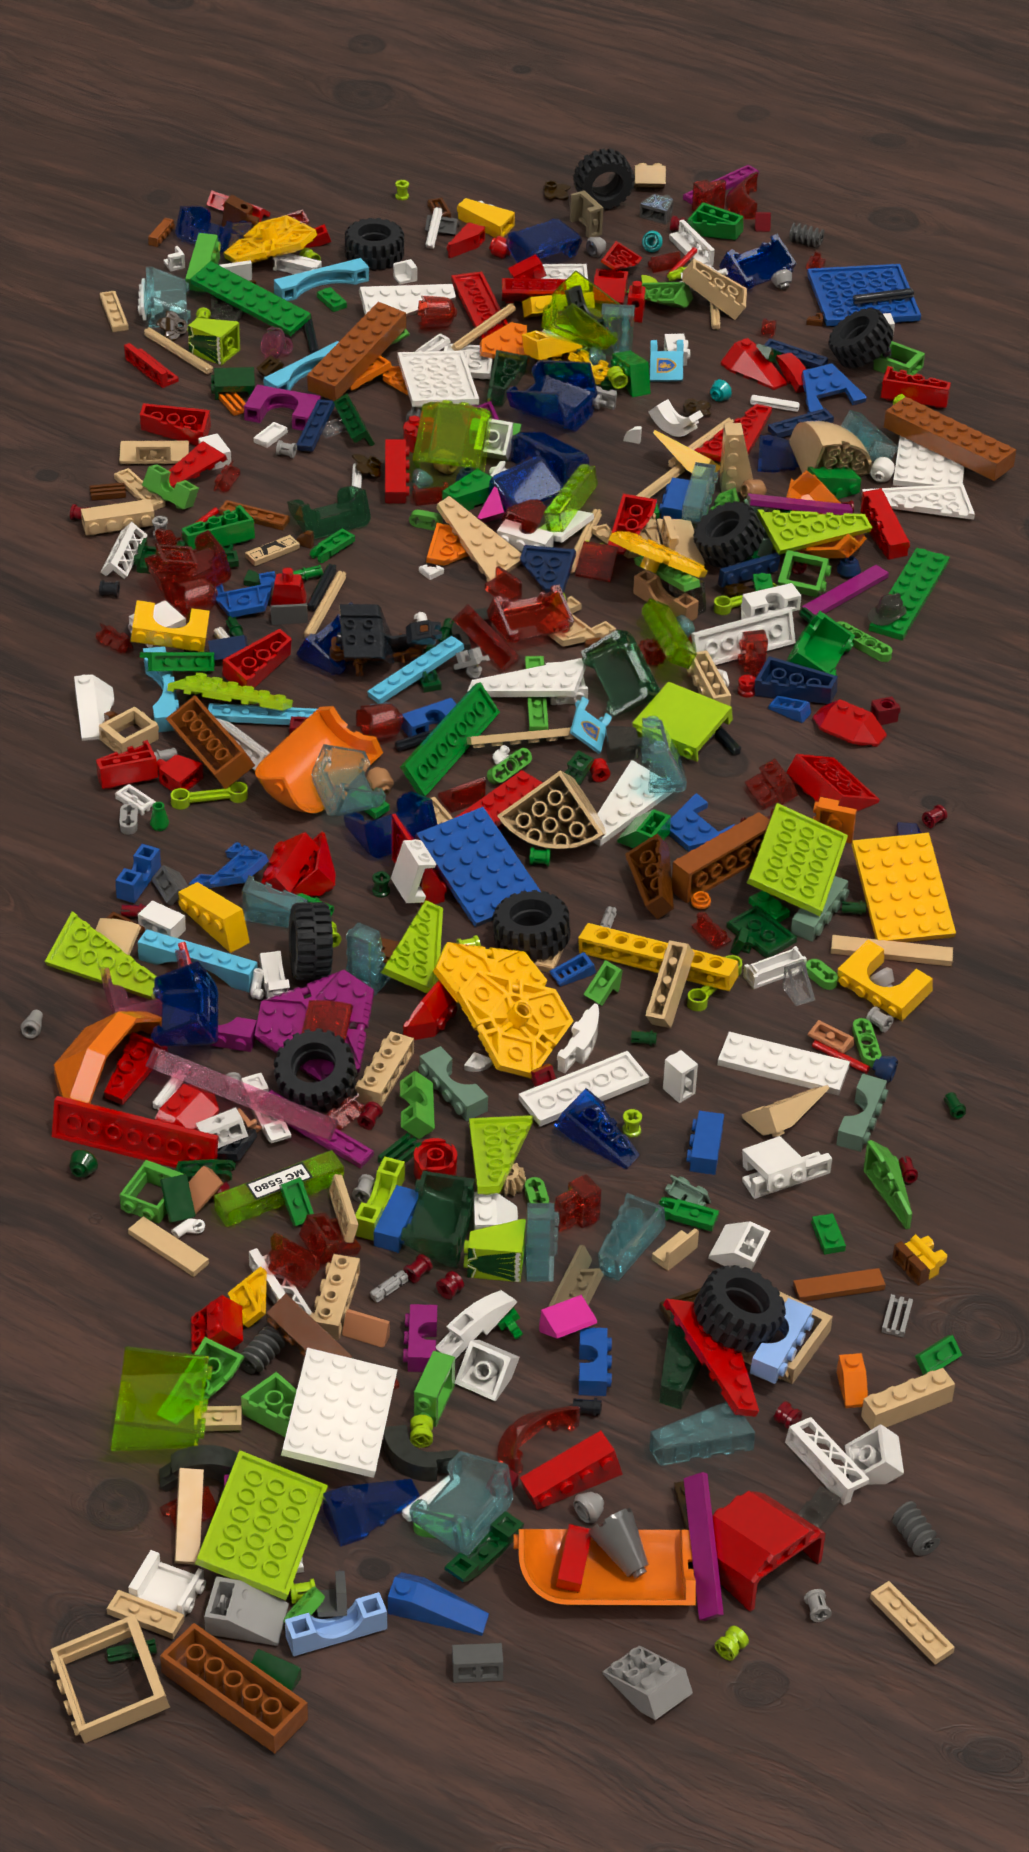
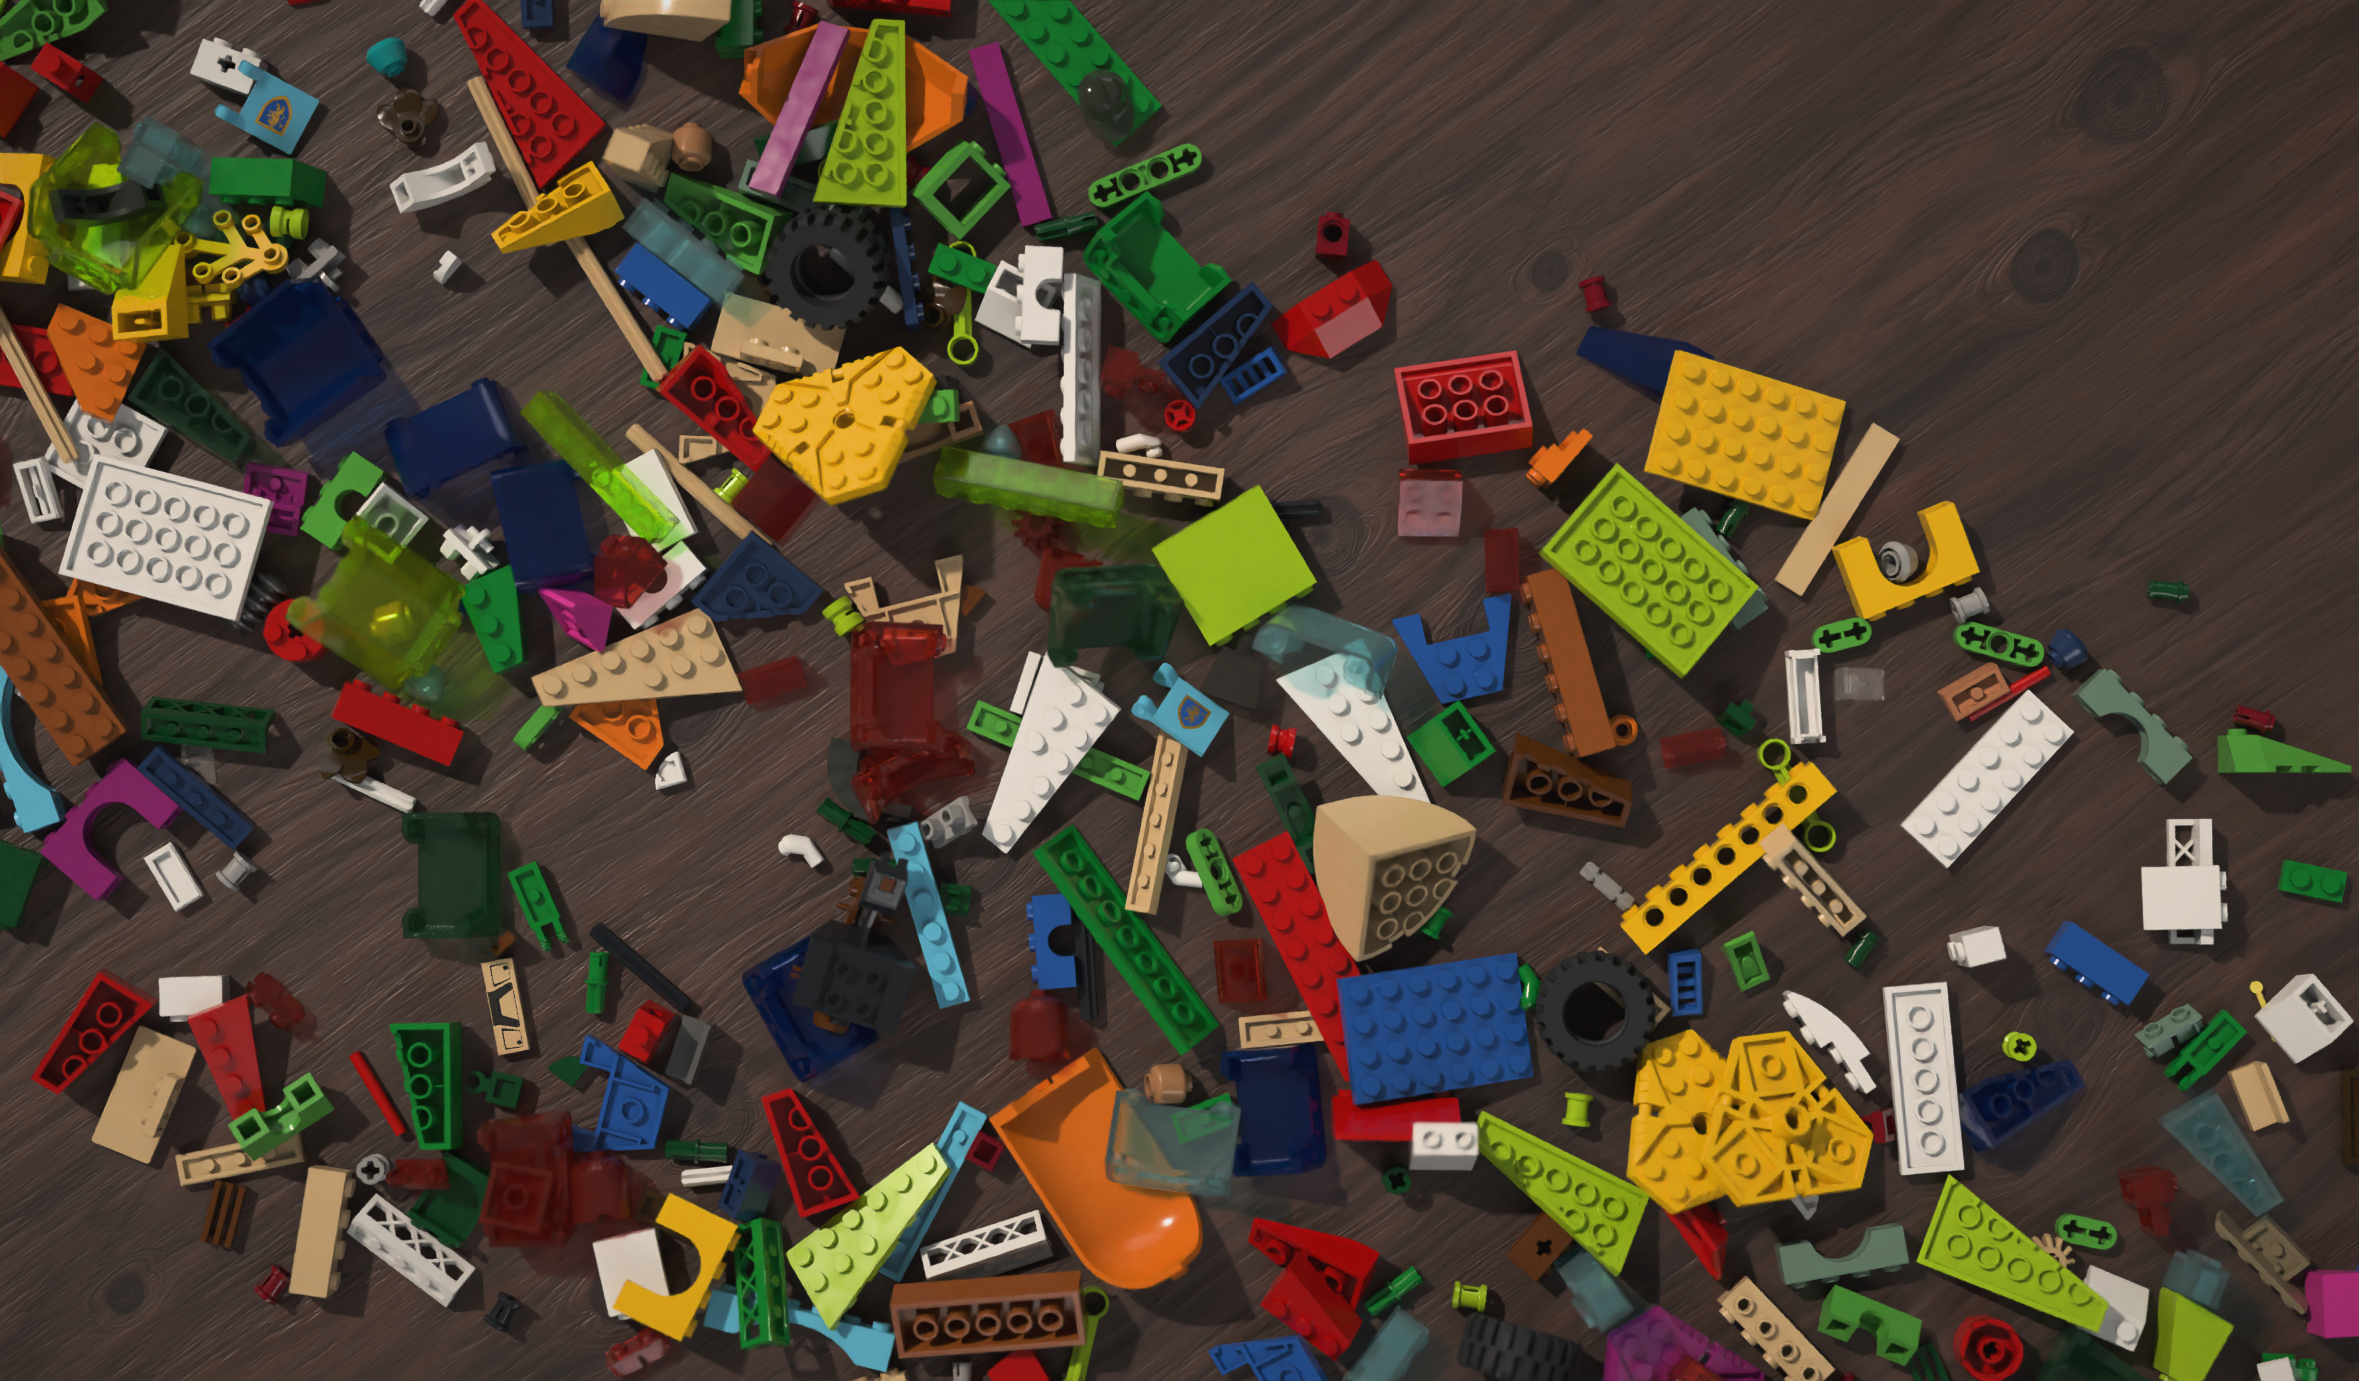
camera: 65 degrees left, 45 degrees up
(236, 402) = (80, 899): orange tile -> none
(260, 516) = (394, 996): dark orange tile -> none
(325, 603) = (688, 980): tan axle -> none
(428, 496) = (466, 682): clear red hinge -> none
(768, 933) = (1723, 675): dark green tile -> none
(783, 1113) = (2084, 832): tan wedge -> none

